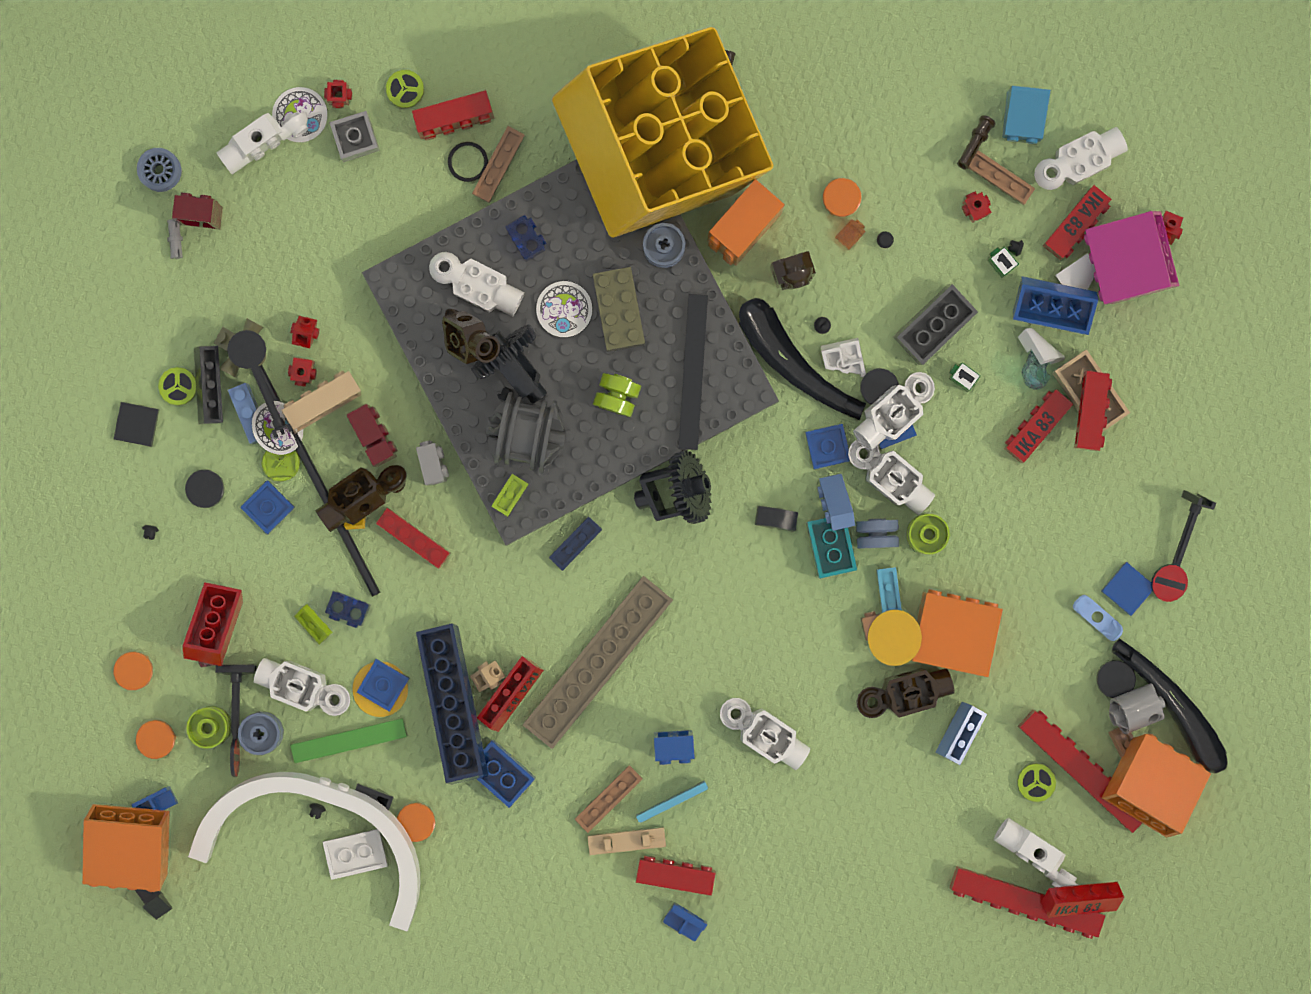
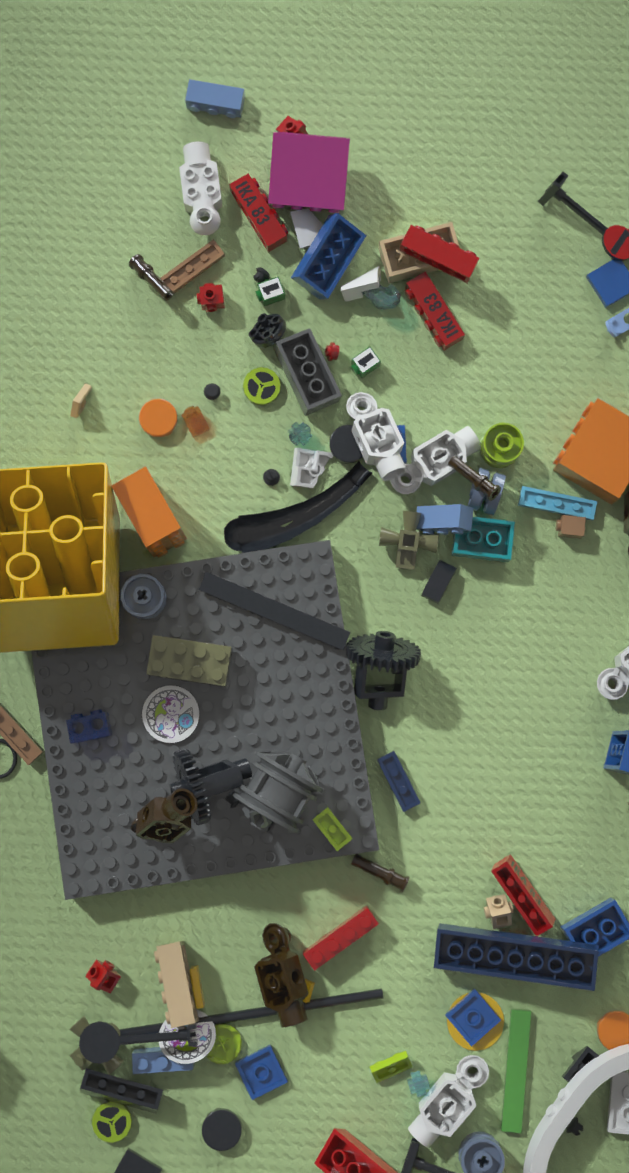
camera: 70 degrees left, 5 degrees down
(297, 366) = (137, 985): red brick -> none
(306, 654) = (418, 1084): none -> clear light blue gear
(324, 421) = (197, 987): none -> yellow tile
(349, 604) = (382, 1024): clear blue brick -> none
(372, 435) = (226, 944): dark red piece -> none
(431, 464) = (274, 895): light grey brick -> none
(477, 284) = (116, 790): white brick -> none
(484, 564) = (389, 876): none -> dark brown pin
(597, 662) = (520, 799): dark tan plate -> none
(615, 400) = (266, 686): lime wheel -> none
(793, 271) = (212, 483): dark brown brick -> none
(805, 476) = (408, 540): none -> olive brick
(828, 446) = (386, 510): blue tile -> none
(832, 117) = (80, 401): none -> tan tile
(873, 337) = (299, 433): none -> clear light blue gear
(881, 523) = (481, 483): none -> dark brown pin
(894, 637) = (591, 508): yellow sticker -> none
(907, 285) = (261, 386): none -> lime tile
(963, 272) = (267, 330): none -> black tile
(964, 341) = (332, 351): none -> red plate
(1025, 114) = (141, 223): dark azure slope -> none
(1176, 140) = (215, 98): none -> medium blue brick

